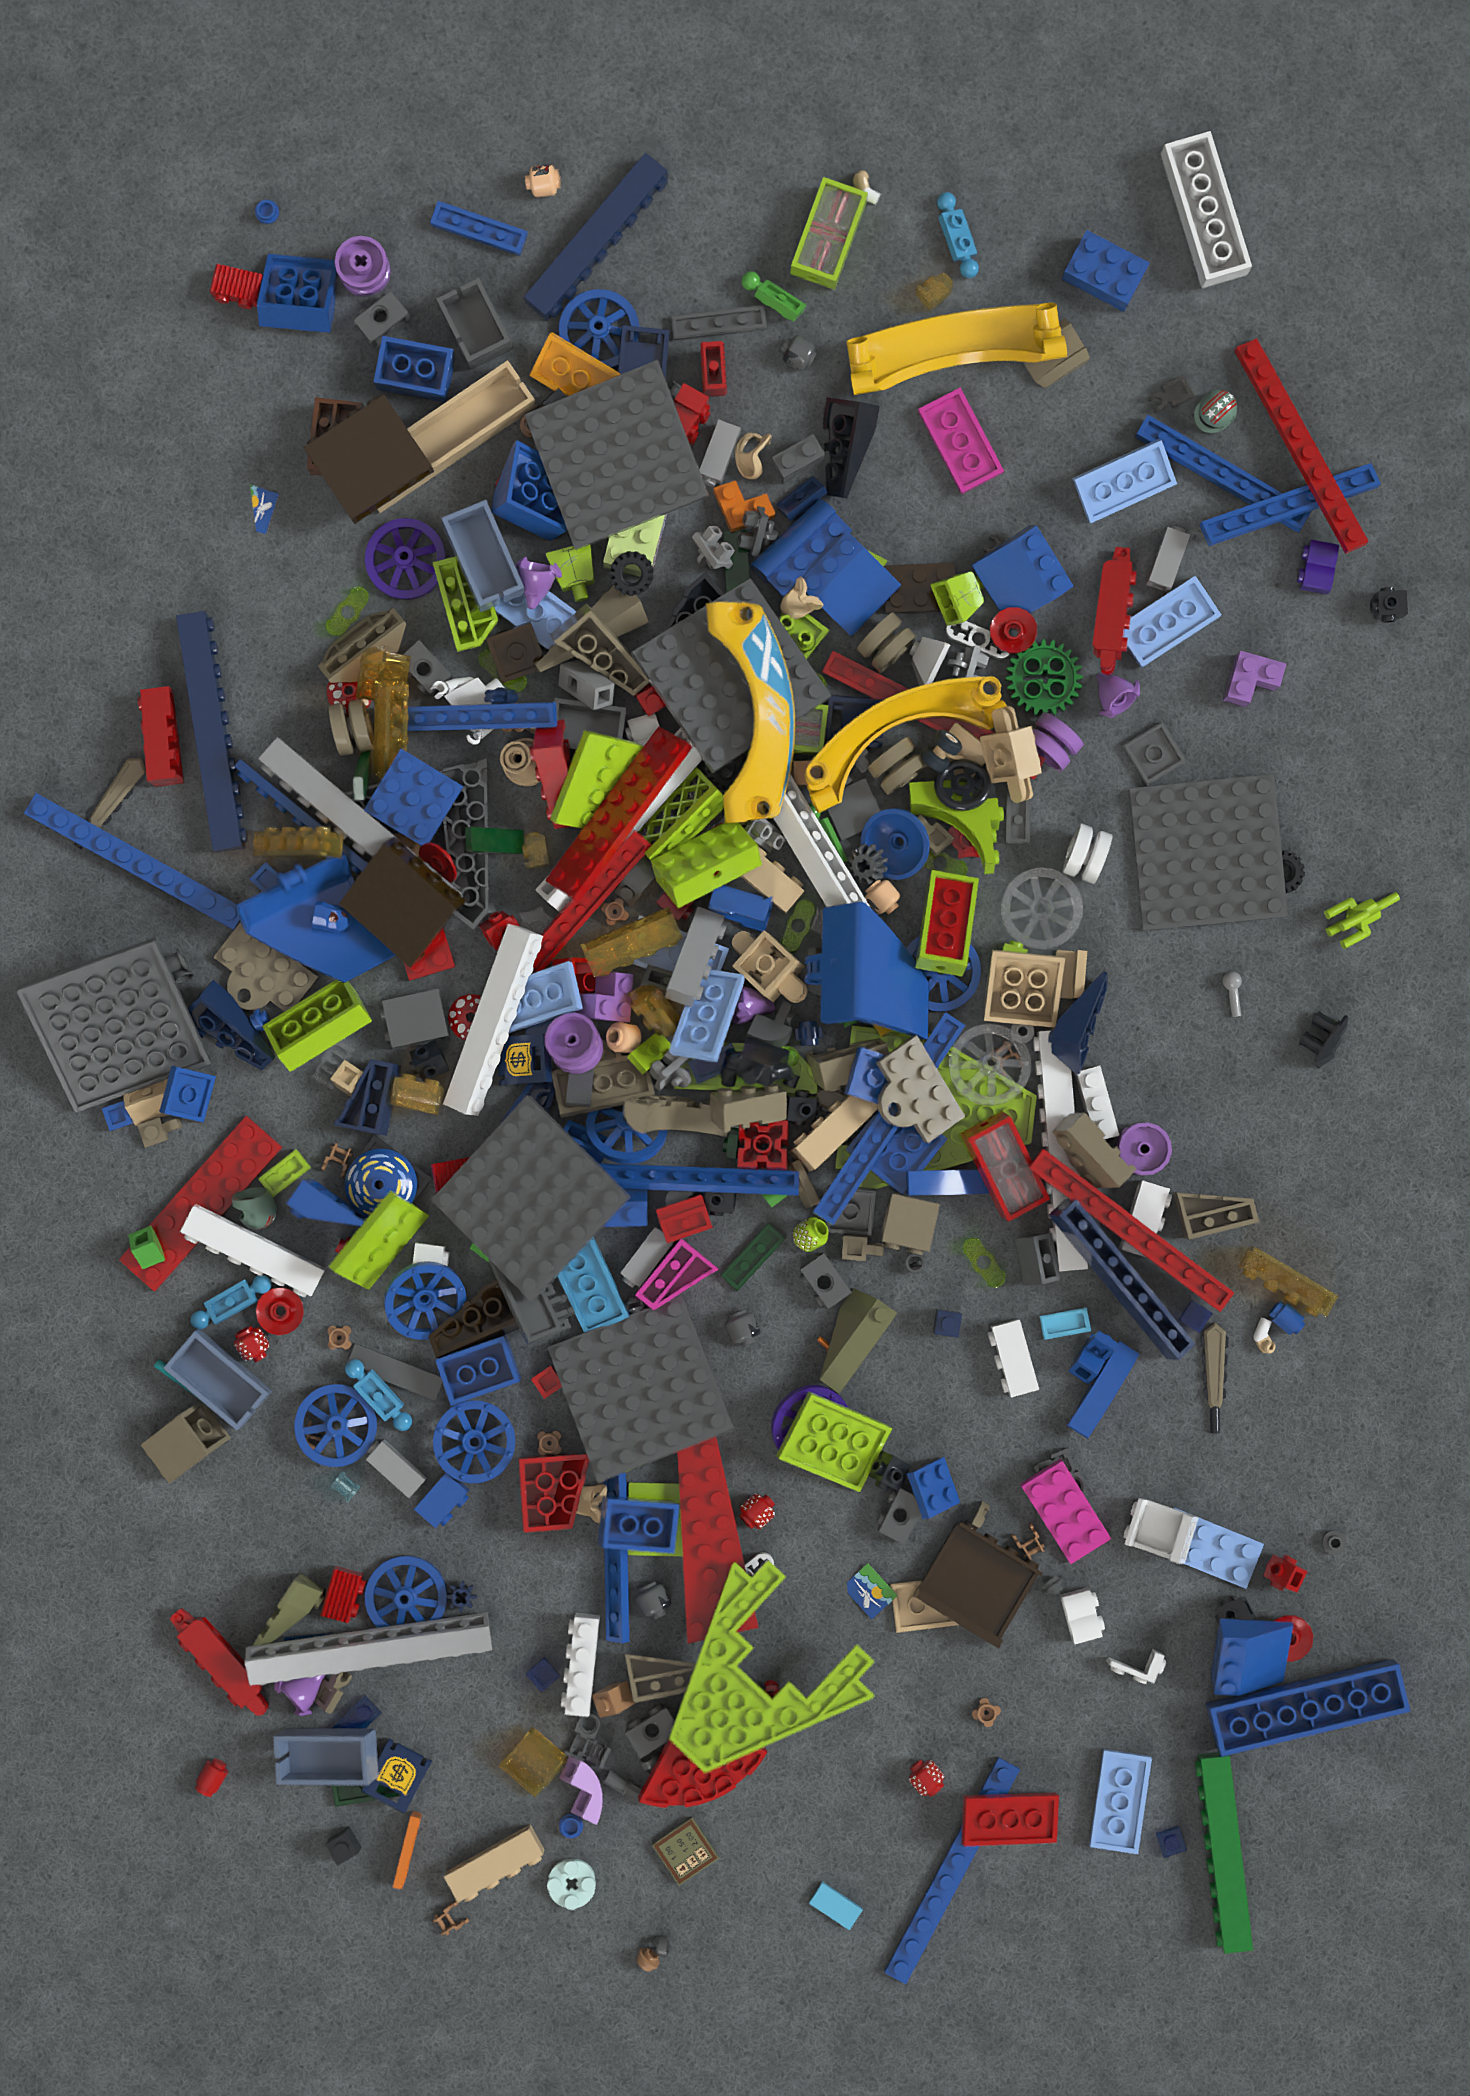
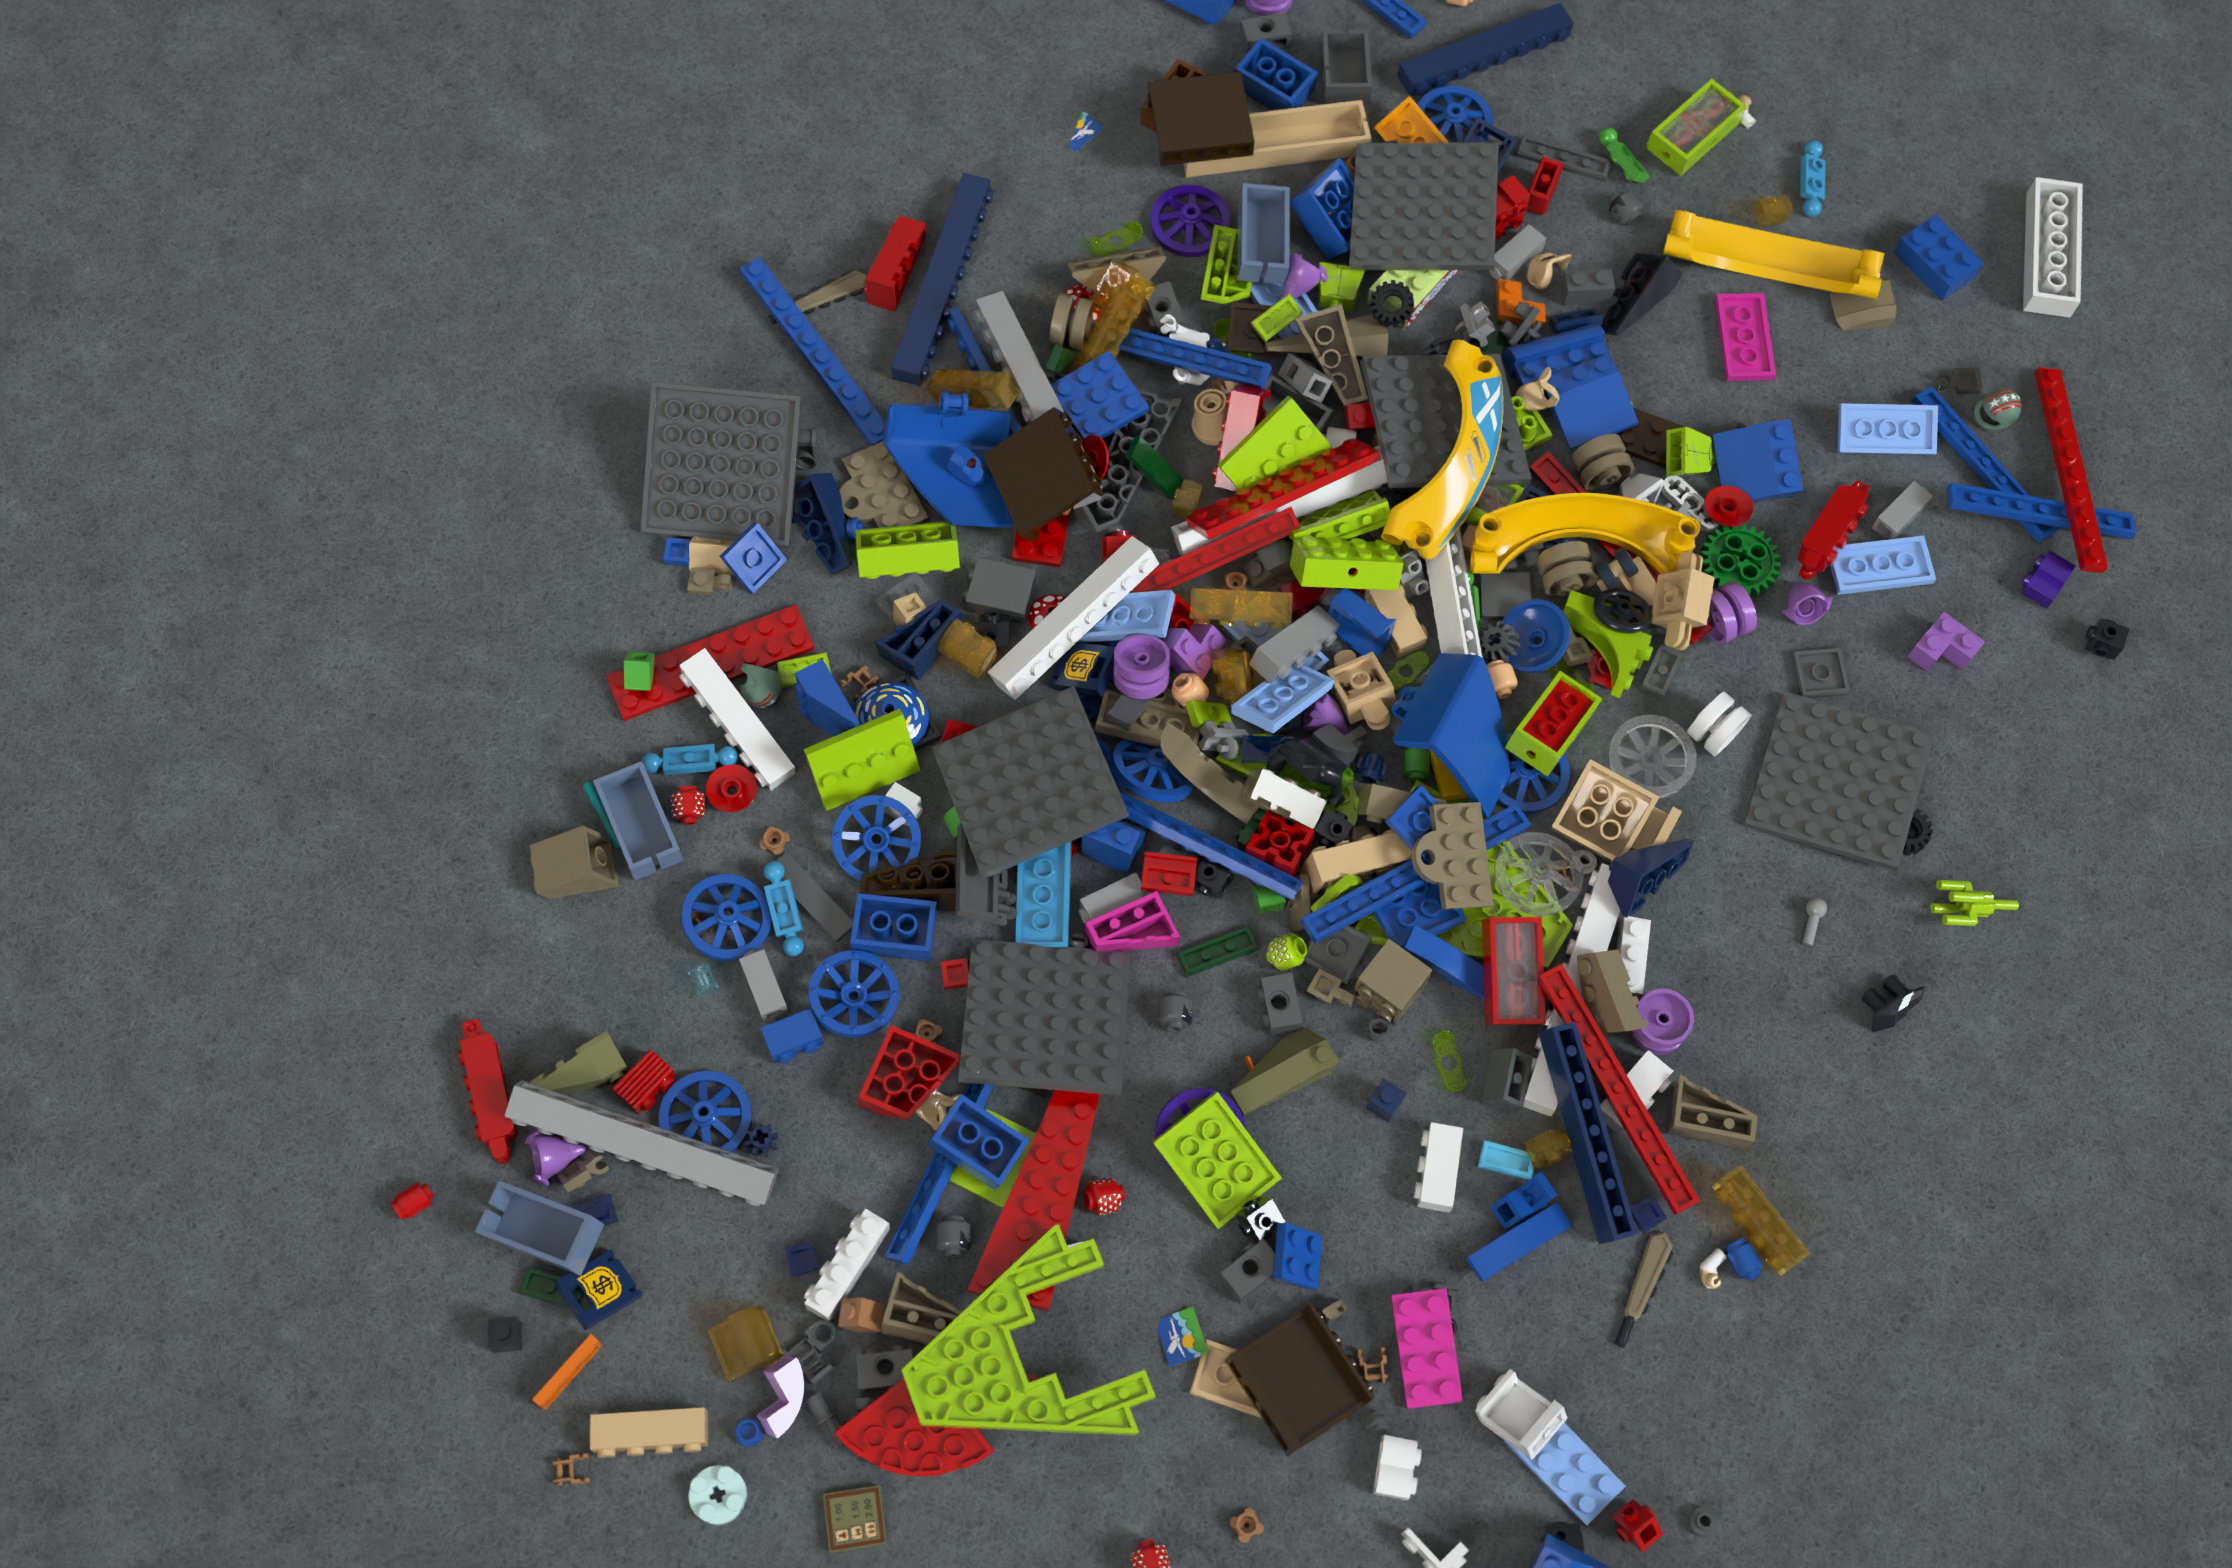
camera: 25 degrees right, 20 degrees down
(534, 637) = (1276, 318): none -> lime plate
(830, 1167) = (1335, 891): none -> lime plate
(1094, 1302) = (1548, 1148): none -> clear yellow brick

